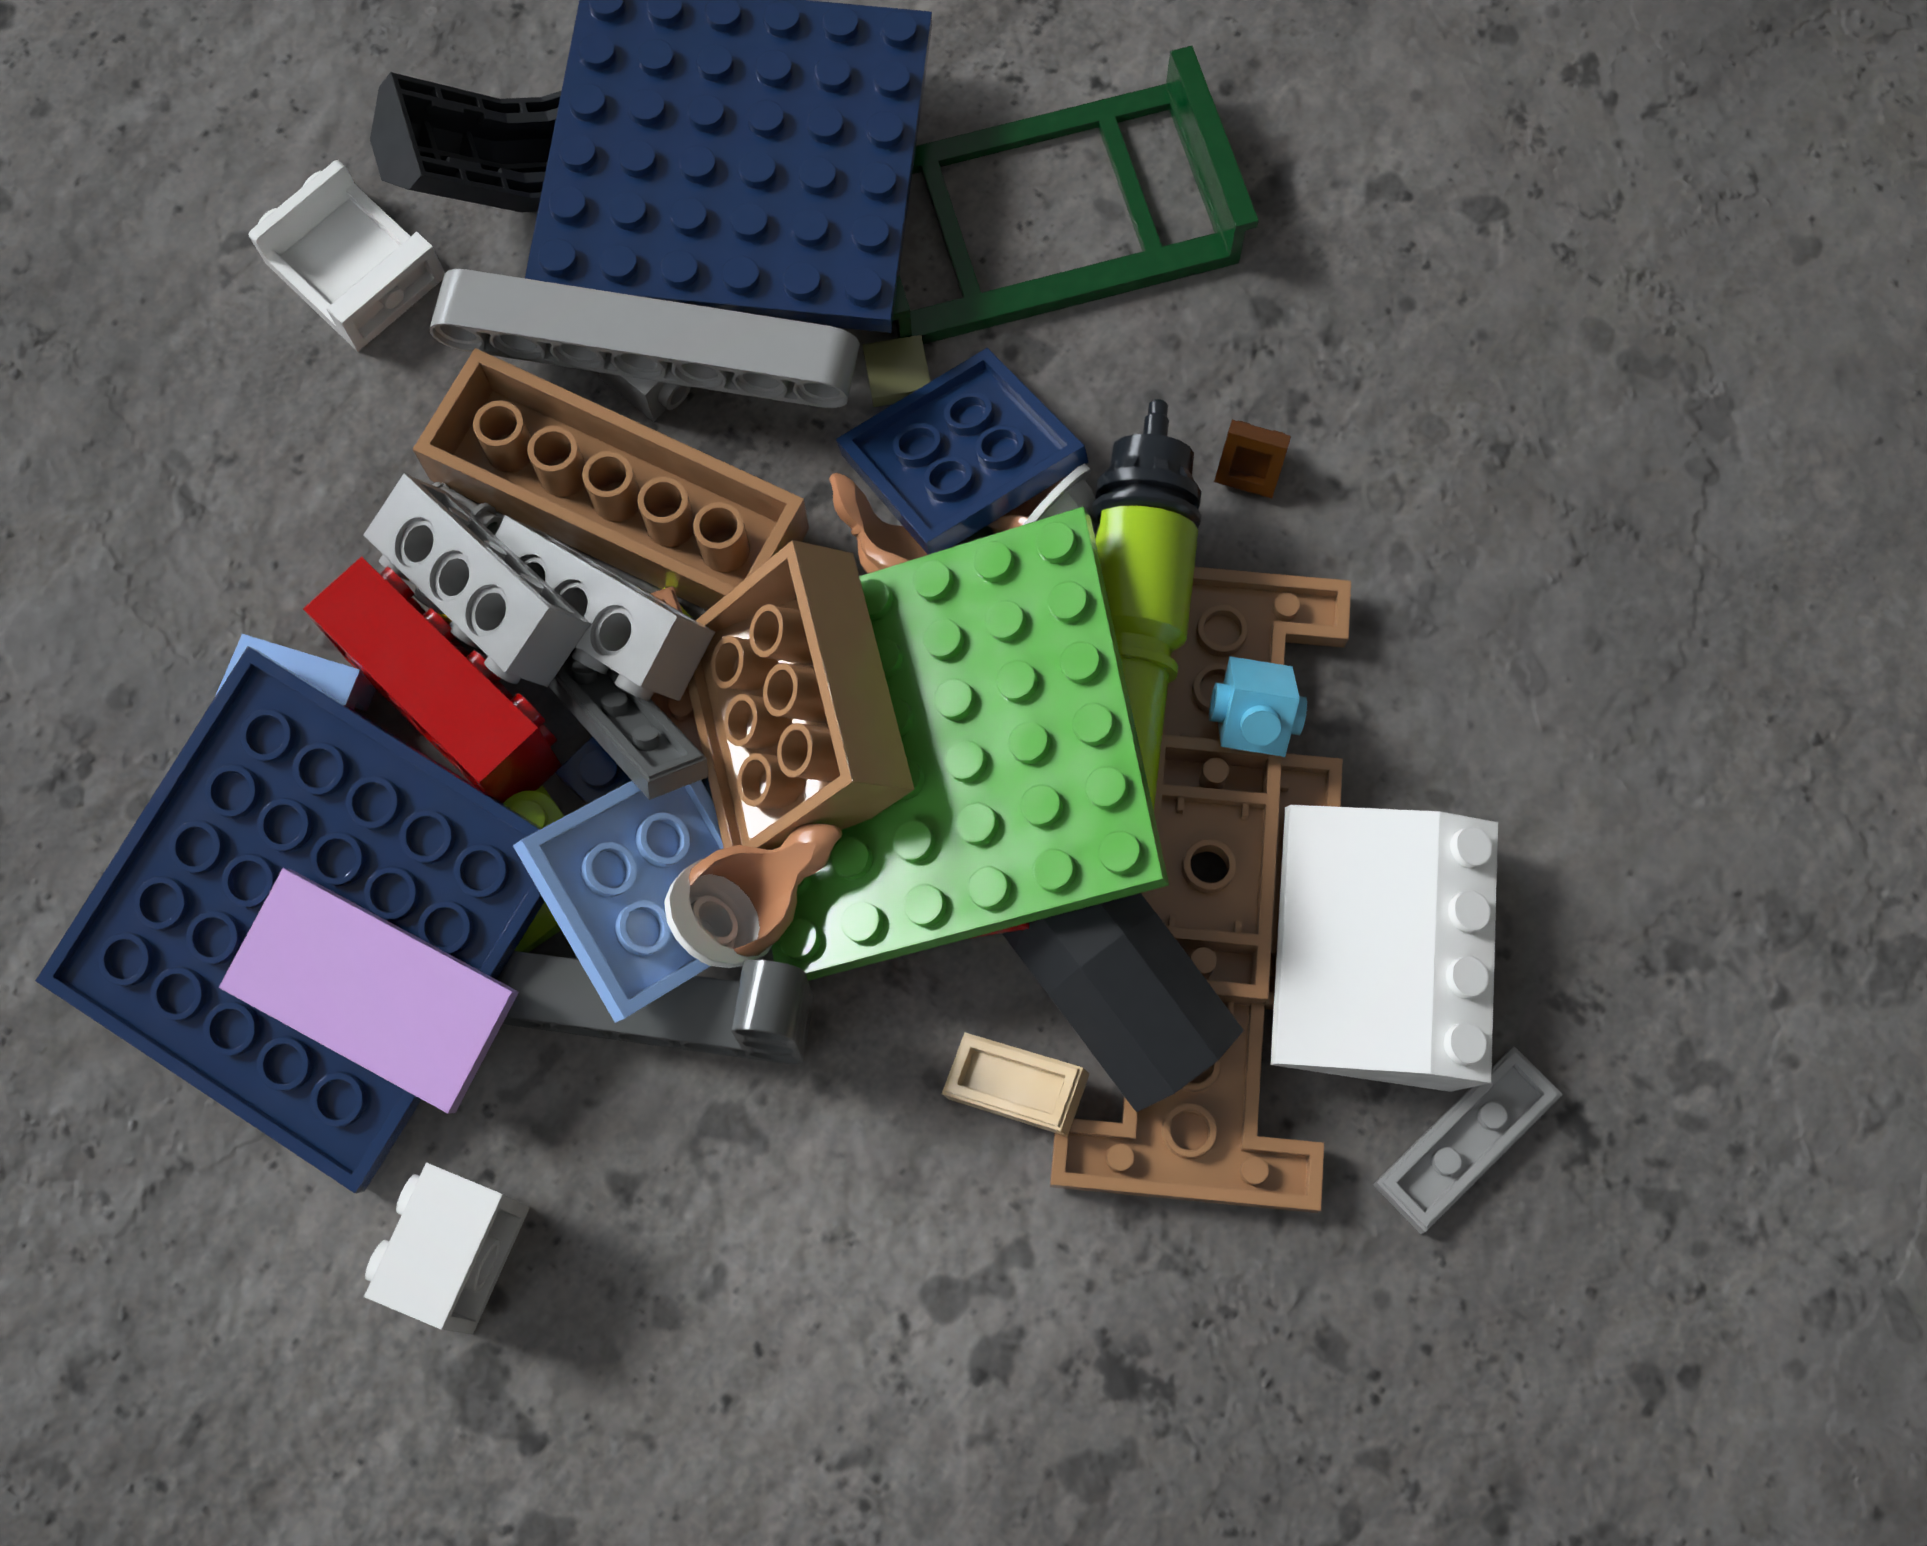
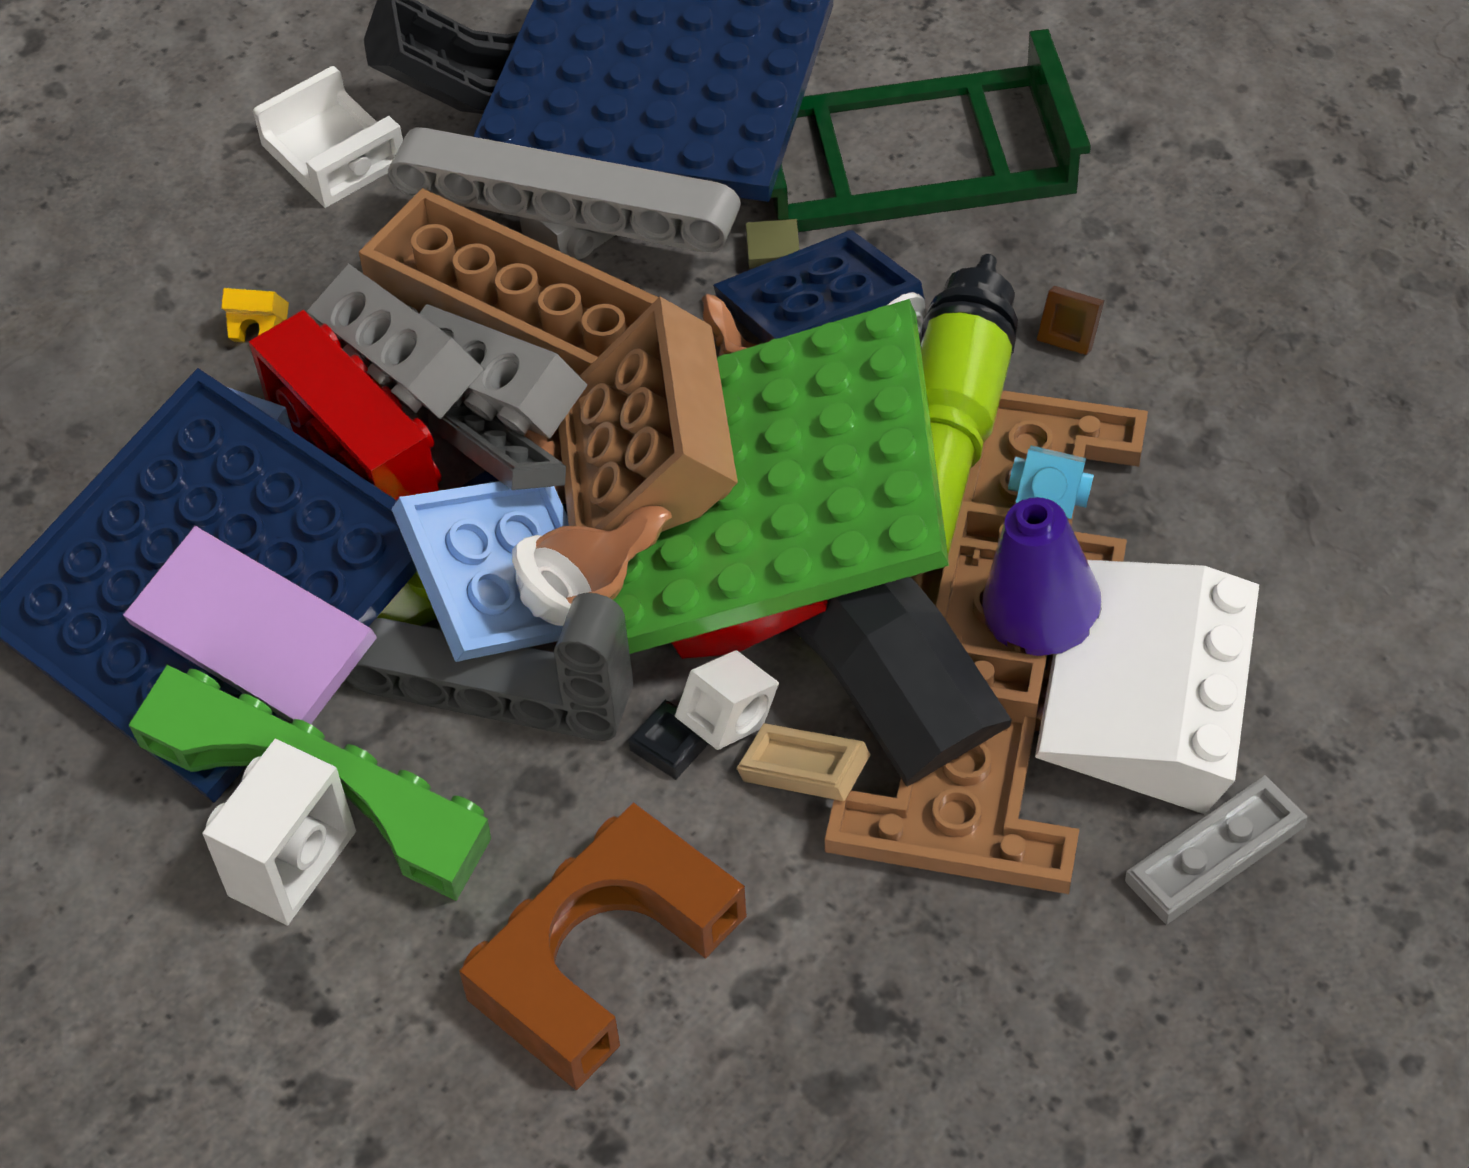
camera: 10 degrees right, 20 degrees down
(298, 516) = (249, 307): none -> yellow tile
(329, 1129) = (206, 728): none -> bright green arch
(739, 1387) = (627, 867): none -> dark orange arch
(863, 1058) = (666, 741): none -> black tile
(922, 1017) = (726, 699): none -> white brick
(1262, 870) = (1040, 582): none -> dark purple cone

